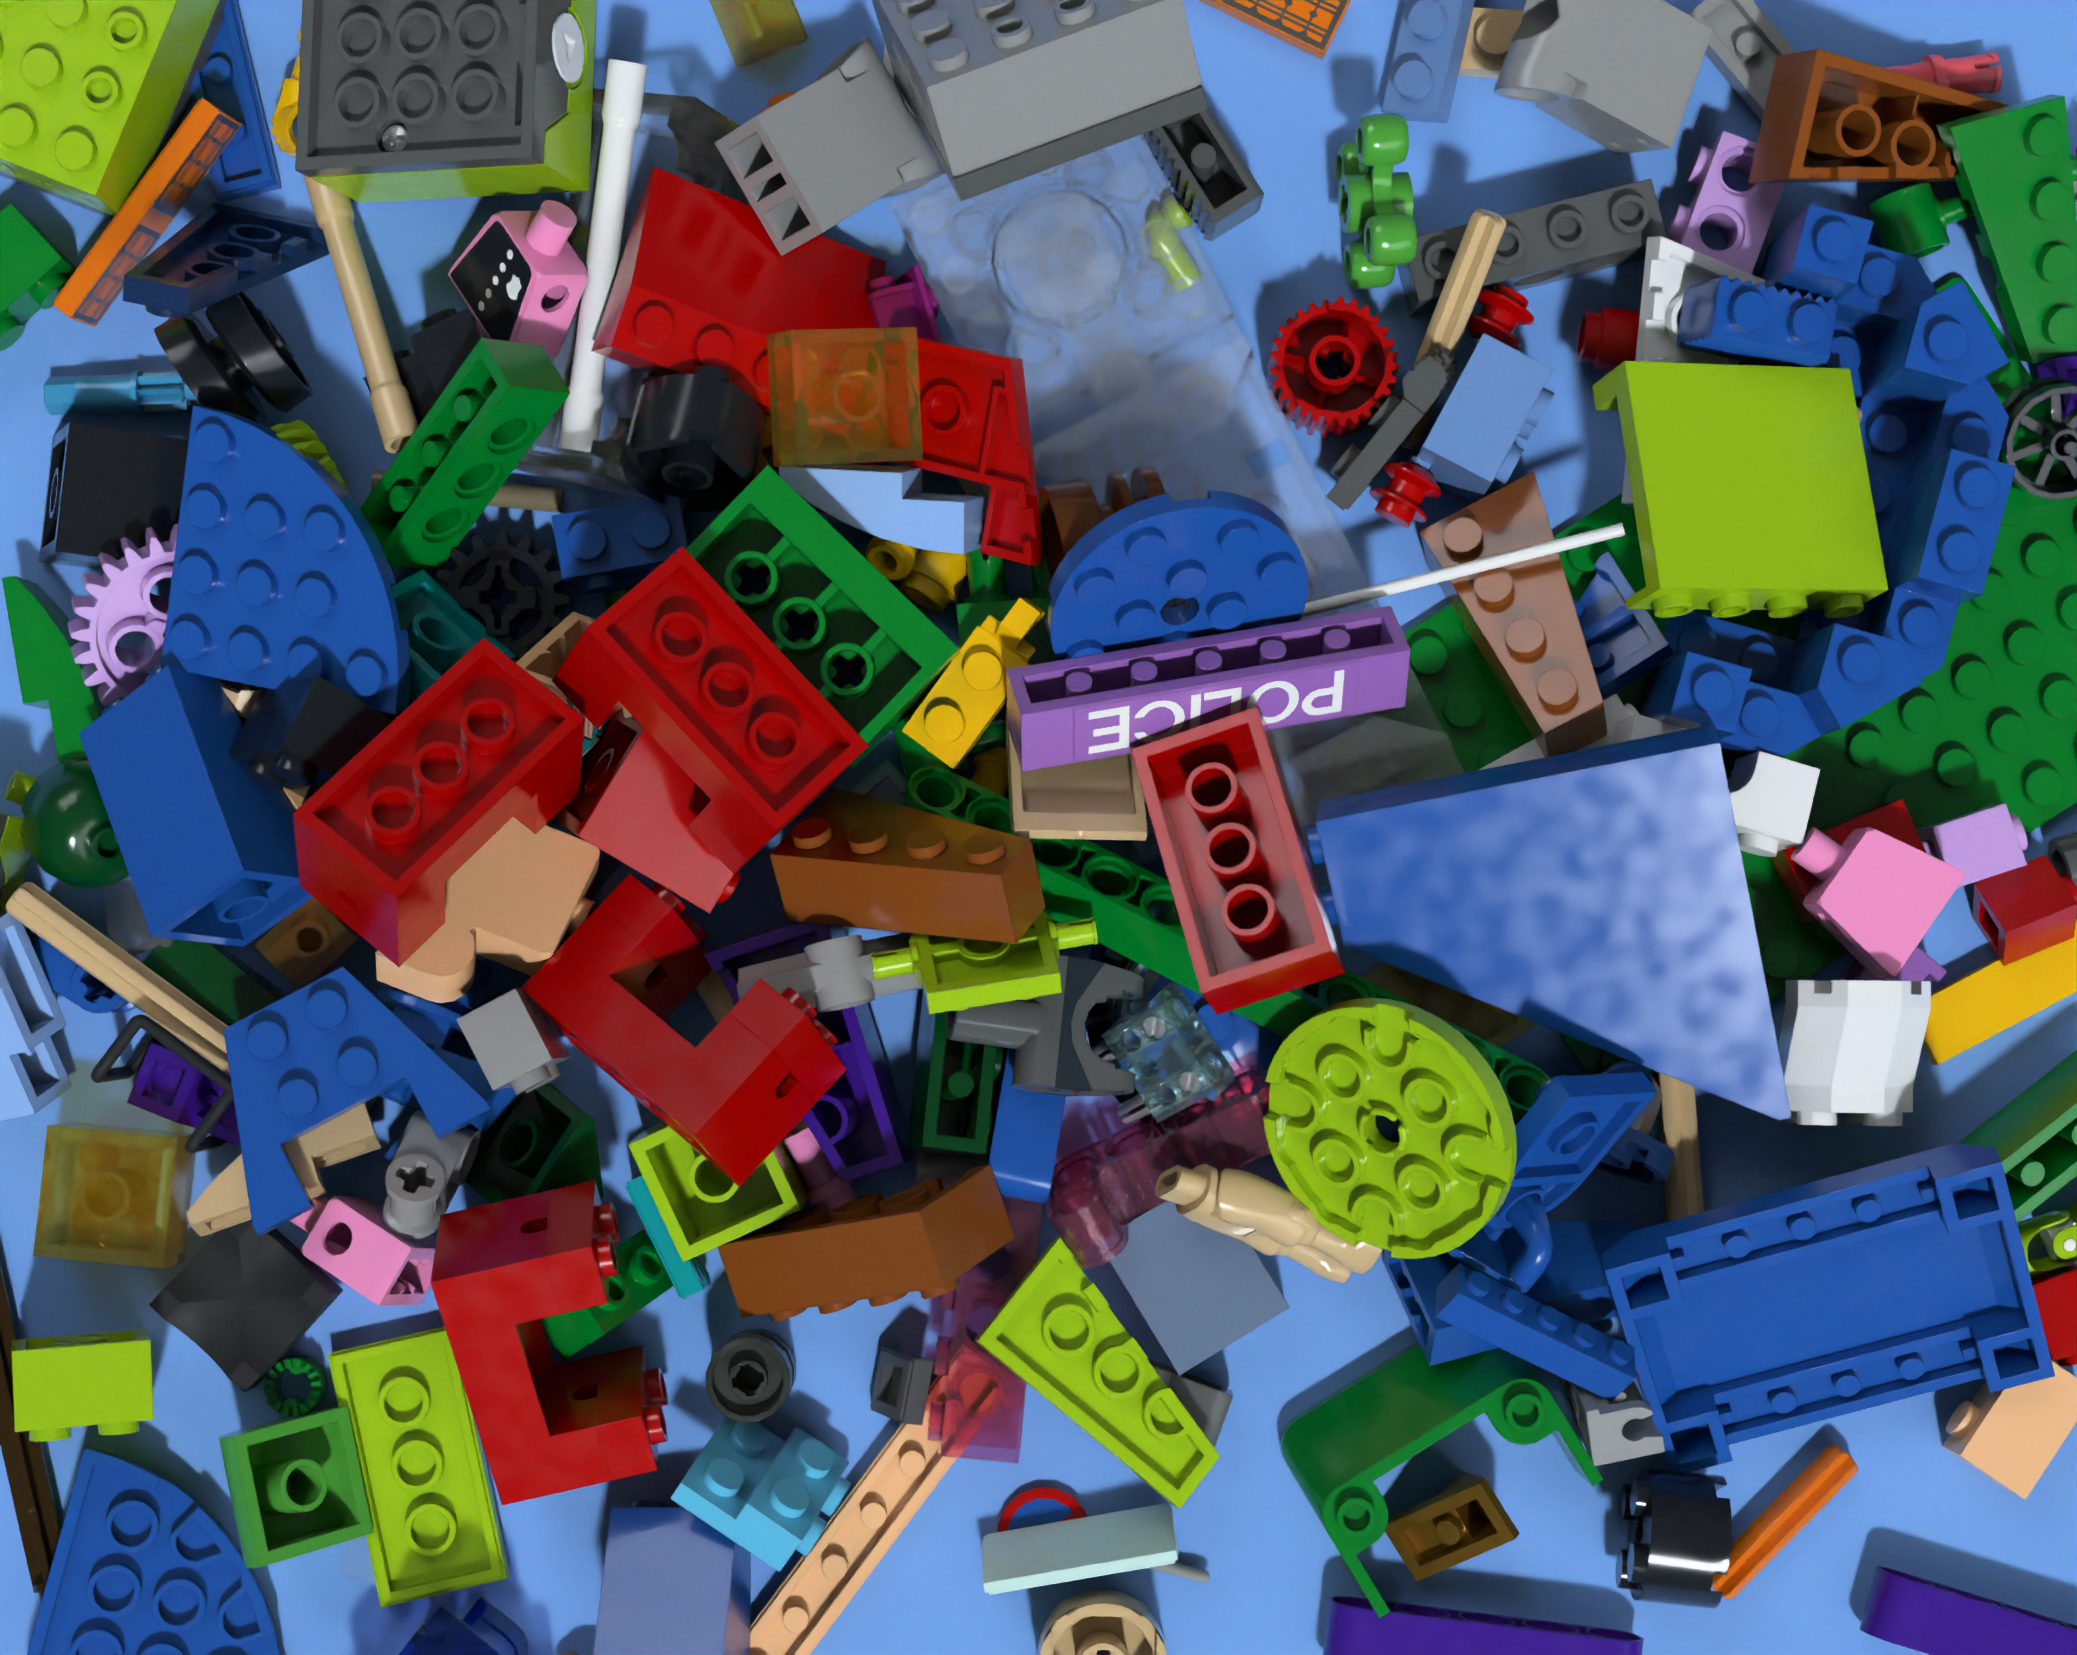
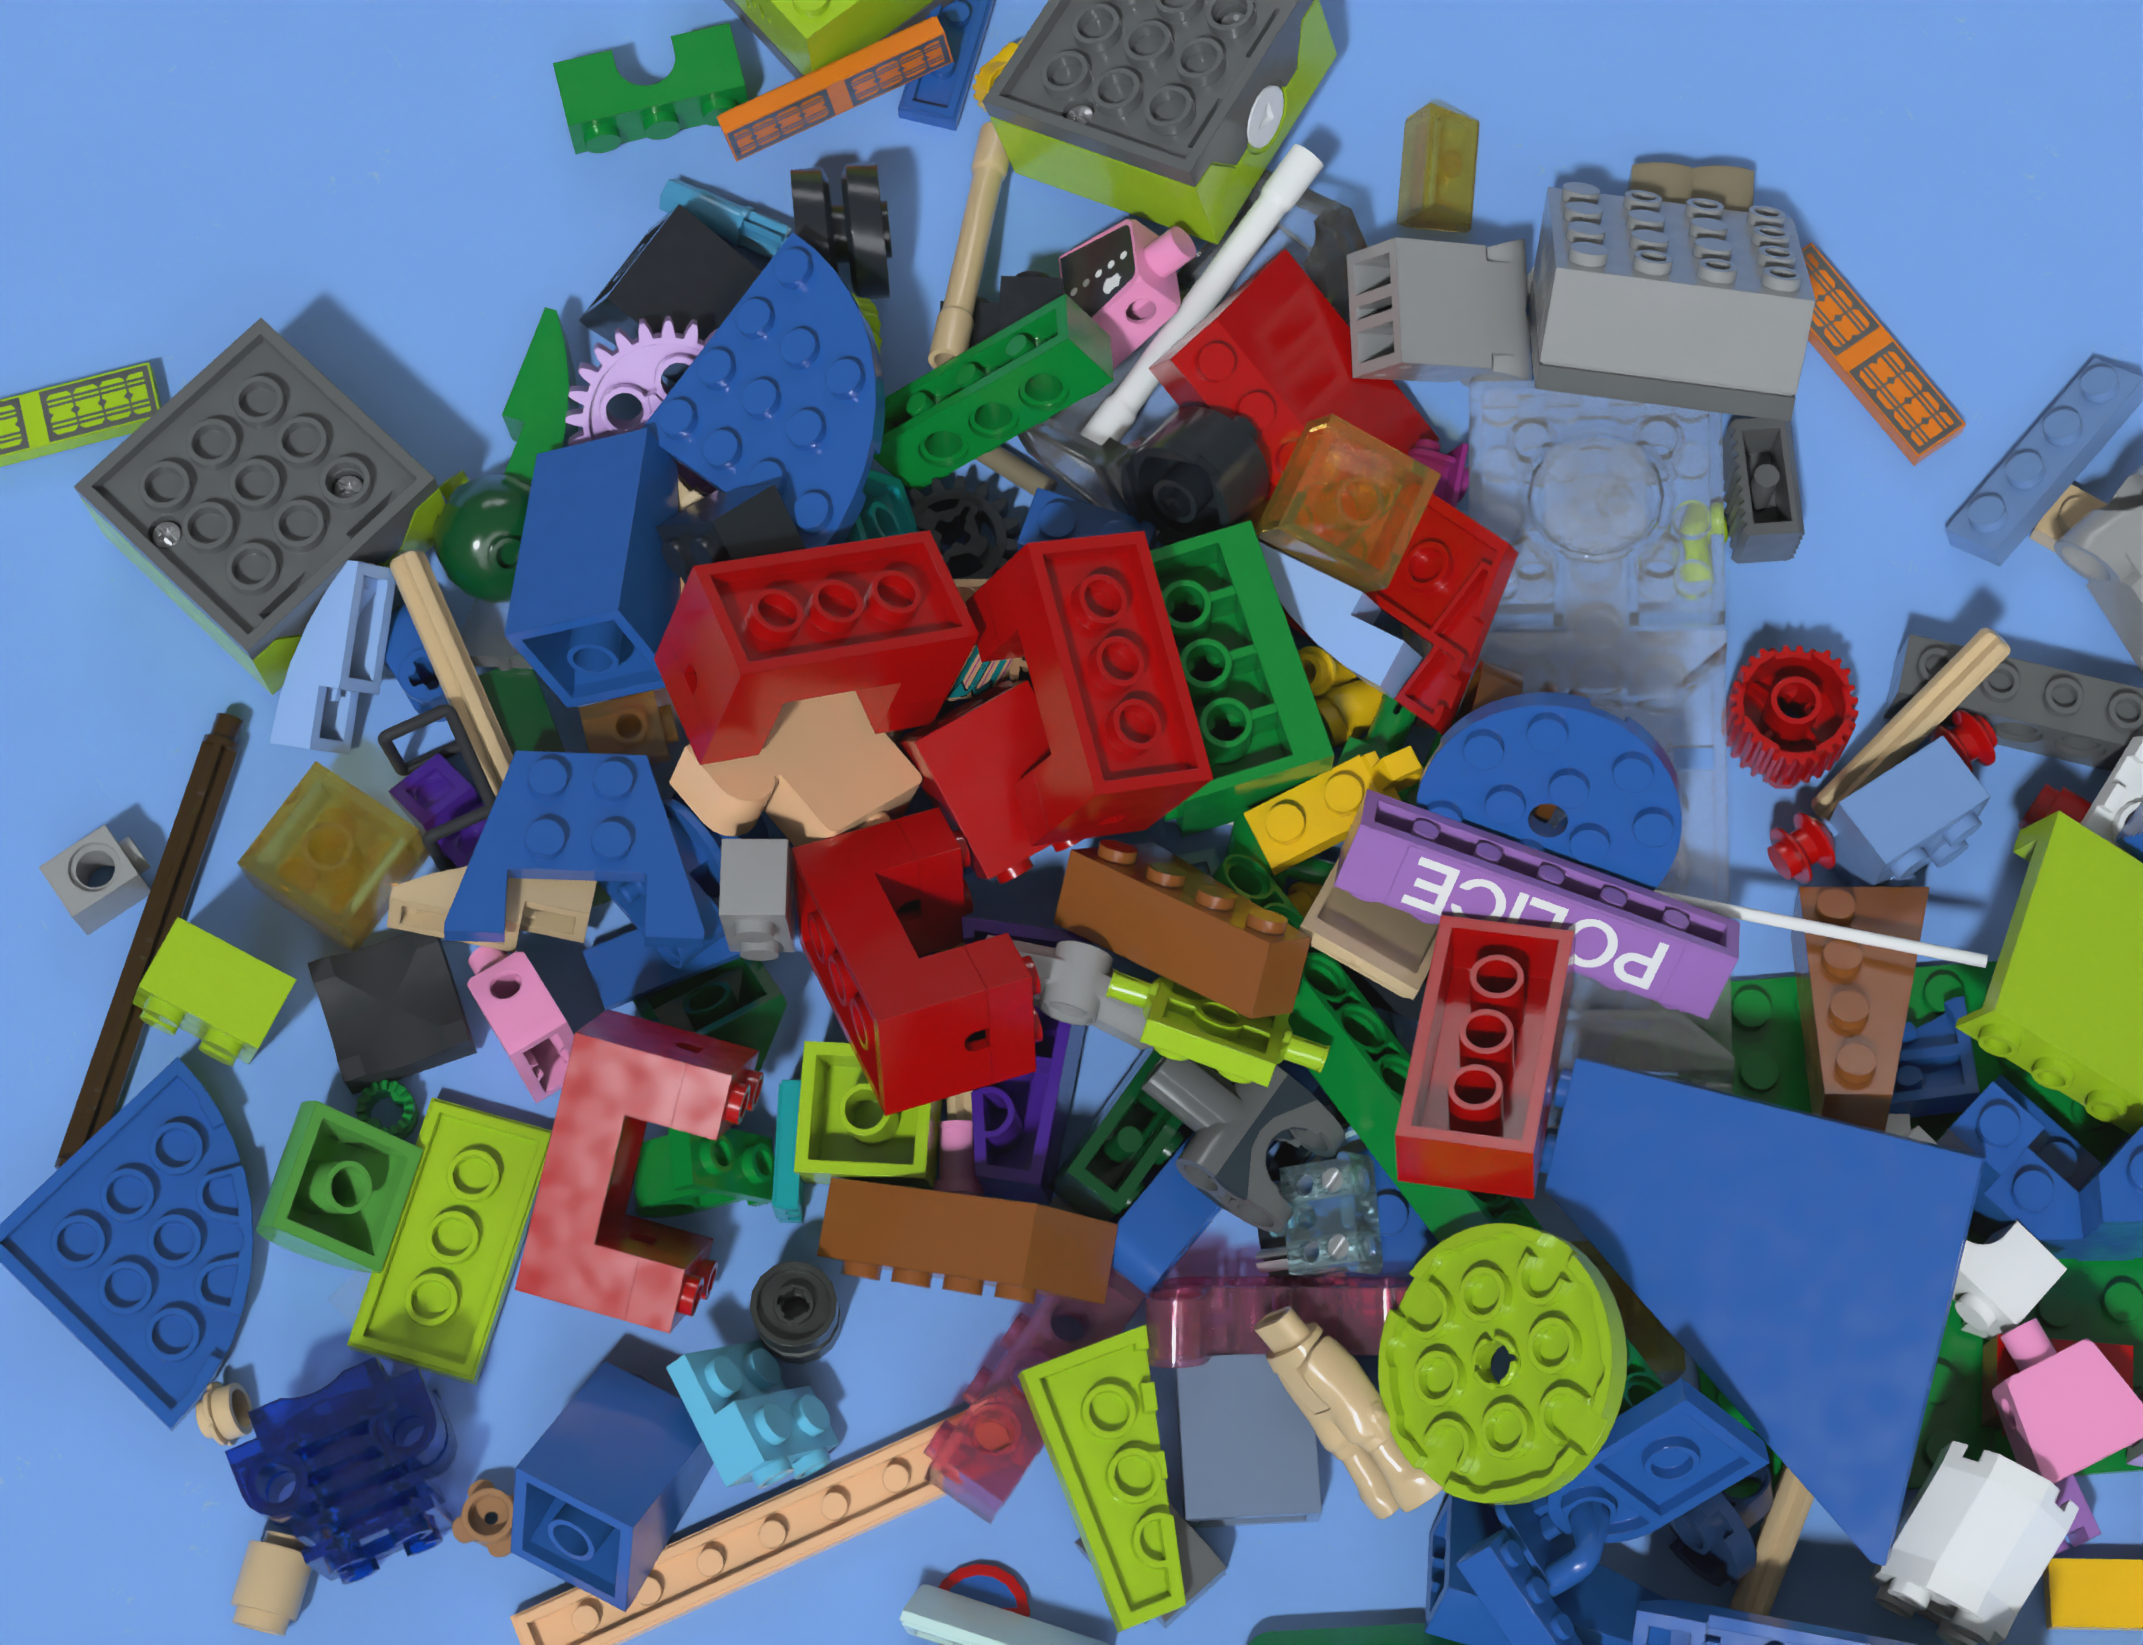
camera: 30 degrees right, 15 degrees down
(219, 257) = (878, 140): dark blue wing -> none
(426, 1177) = (614, 974): light grey piece -> none
(901, 1385) = (925, 1398): dark grey tile -> none
(1376, 201) = (1901, 590): bright green gear -> none
(1393, 424) = (1820, 787): dark grey hinge -> none

